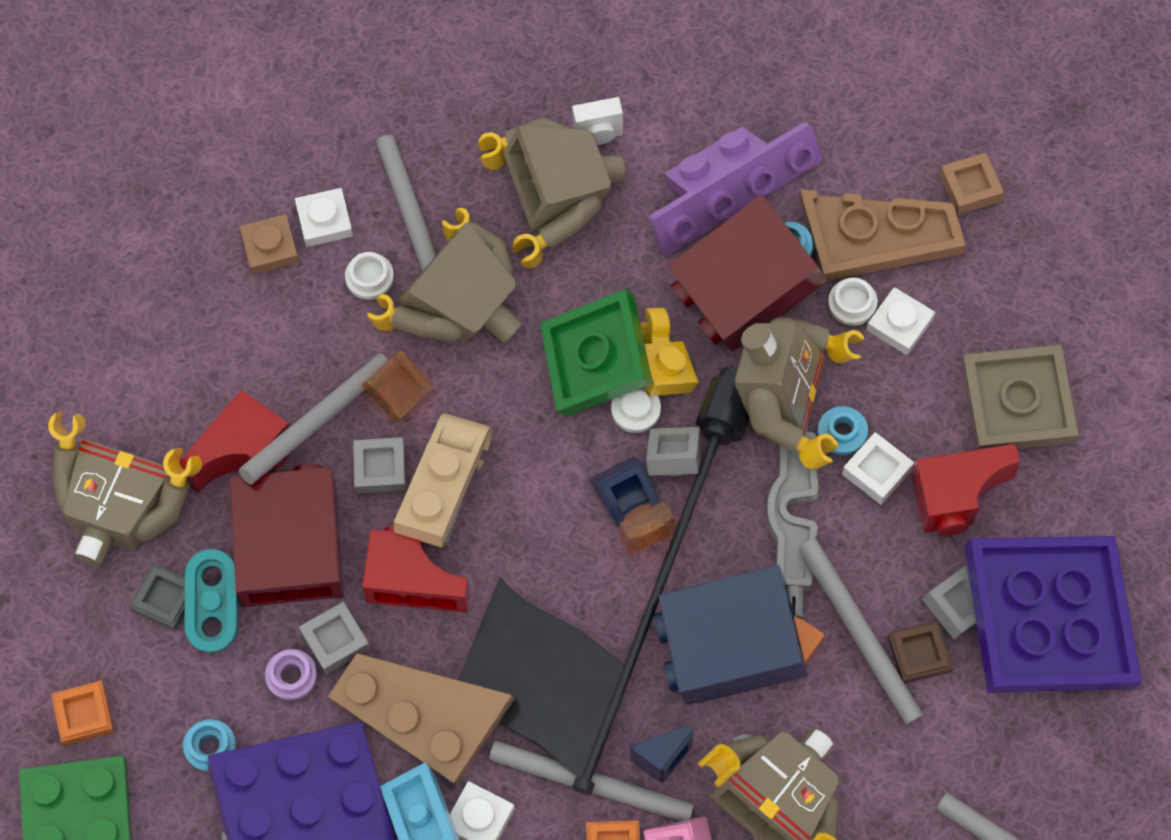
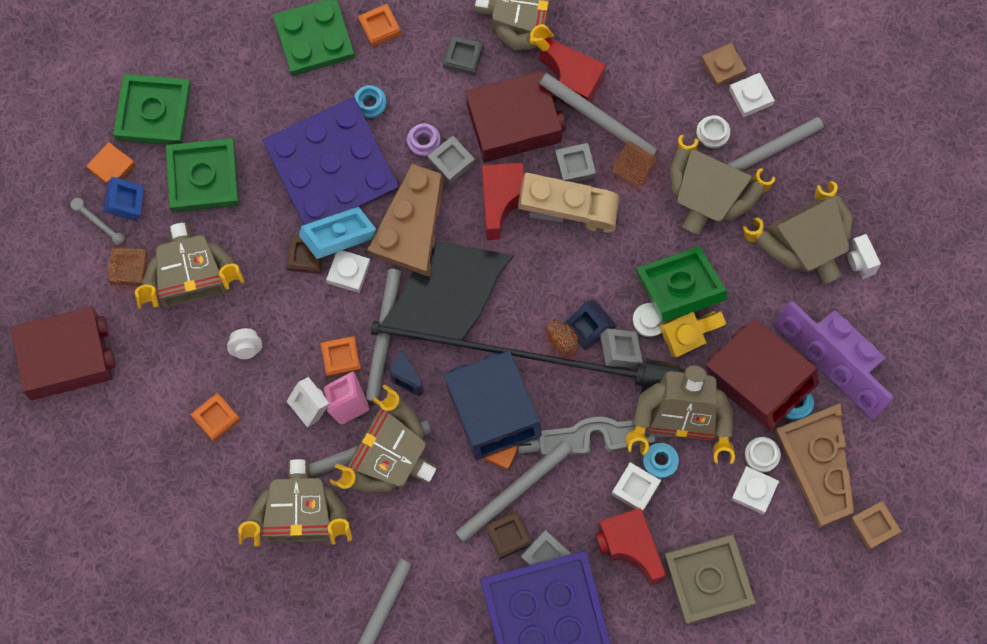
camera: 80 degrees right, 5 degrees up
(211, 602) = (461, 77): teal plate -> none

